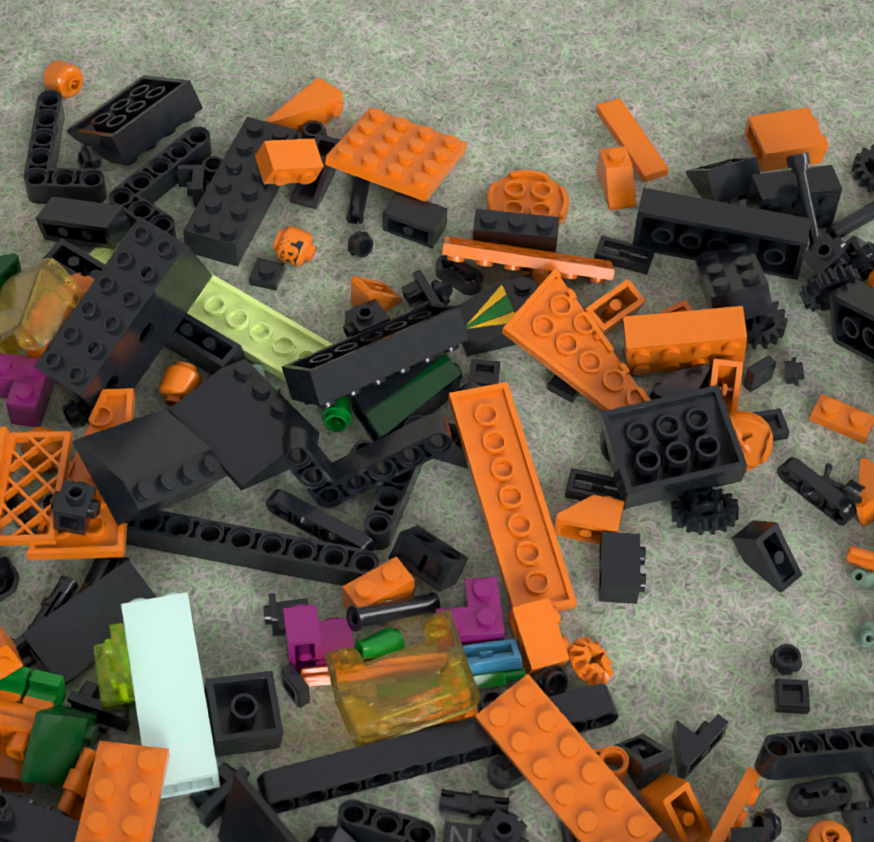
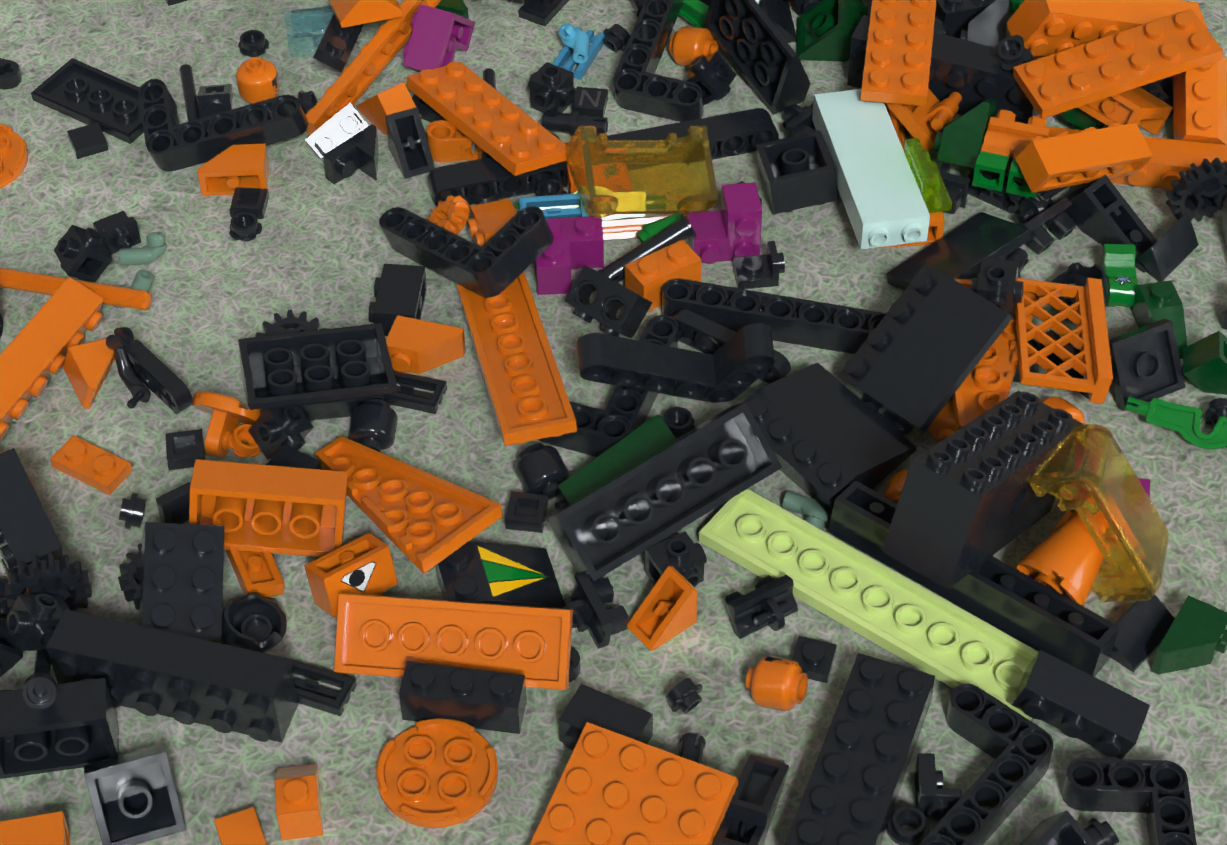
camera: 175 degrees left, 5 degrees down
(289, 161) = (792, 763): orange brick -> none
(301, 295) = (762, 607): none -> black hips
(577, 592) = (479, 269): none -> black beam
(676, 278) = (253, 623): none -> black hair
(722, 762) = (336, 130): none -> hips
(767, 553) = (237, 313): black slope -> none
(813, 714) = (235, 167): none -> orange slope

